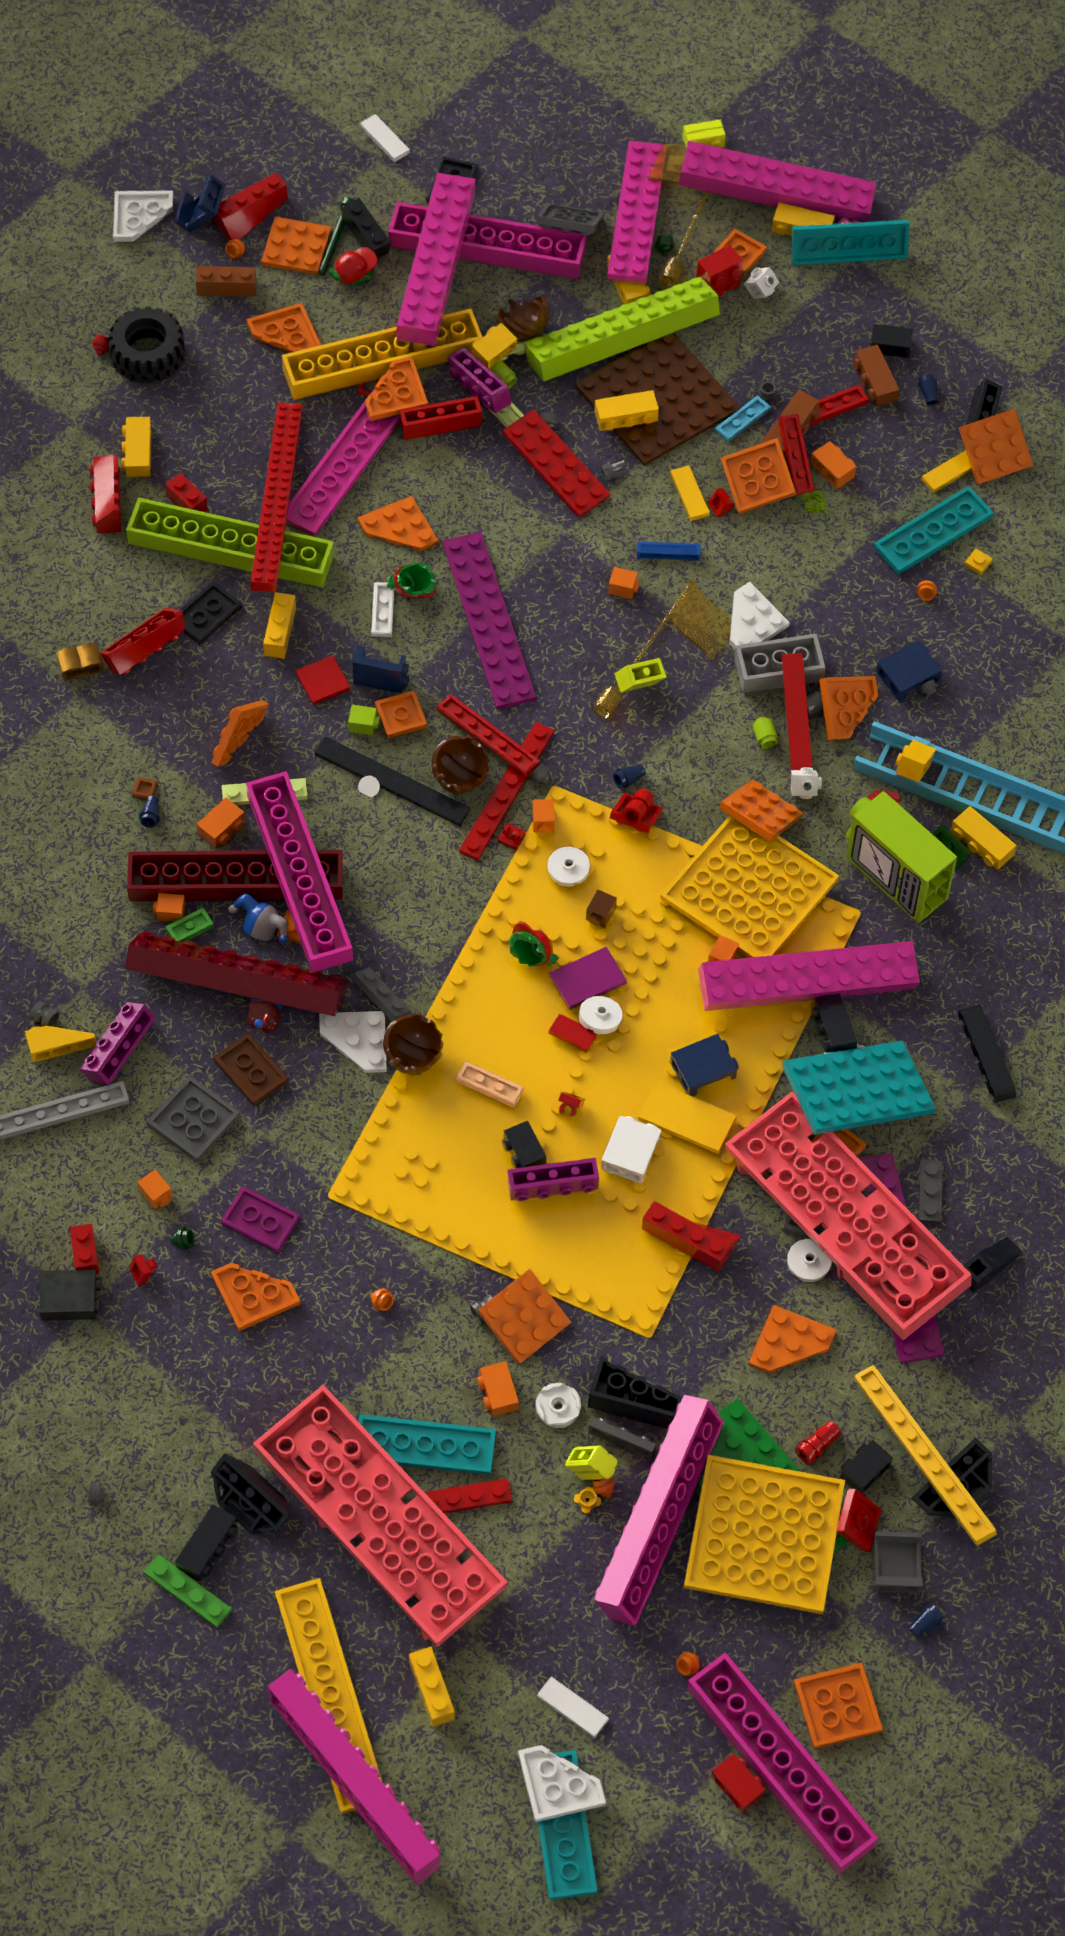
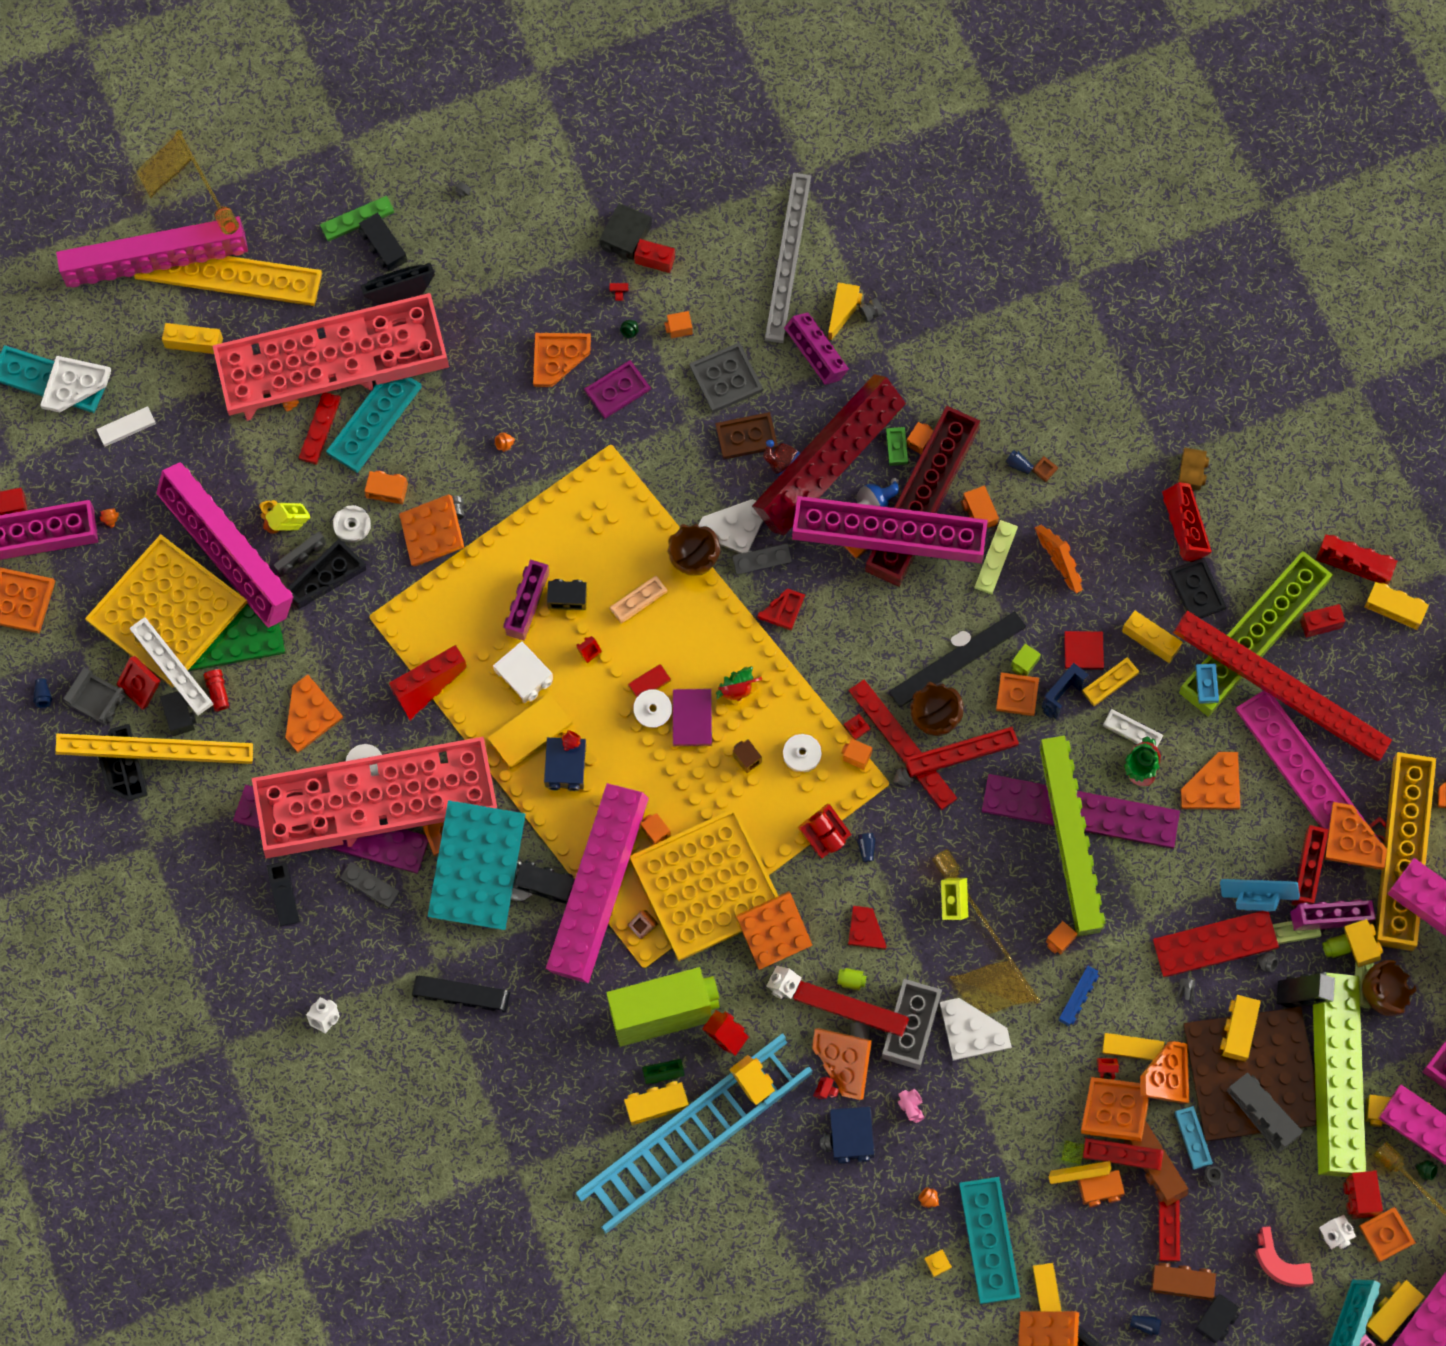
camera: 120 degrees right, 10 degrees up
(224, 1837) = (169, 163): none -> clear yellow flag
(310, 549) = (1207, 683): none -> dark azure plate
(341, 642) = (1110, 681): none -> yellow plate
(425, 951) = (784, 609): none -> red wing
(494, 441) = (1259, 893): none -> dark azure bracket
(524, 602) = (1070, 835): none -> lime brick
(563, 372) = (1305, 990): none -> black brick
(682, 1059) = (570, 740): none -> red plate
(694, 361) = (1264, 1112): none -> dark grey wedge
(702, 449) = (1168, 1075): none -> orange plate
(709, 744) = (865, 929): none -> red wing
(818, 302) = (1284, 1273): none -> coral arch
(821, 926) = (643, 924): none -> dark orange slope
(826, 1485) = (171, 666): none -> white plate
(832, 481) = (1080, 1172): none -> yellow tile
(850, 638) = (909, 1102): none -> bright pink plate
(881, 710) = (825, 1089): none -> red tile

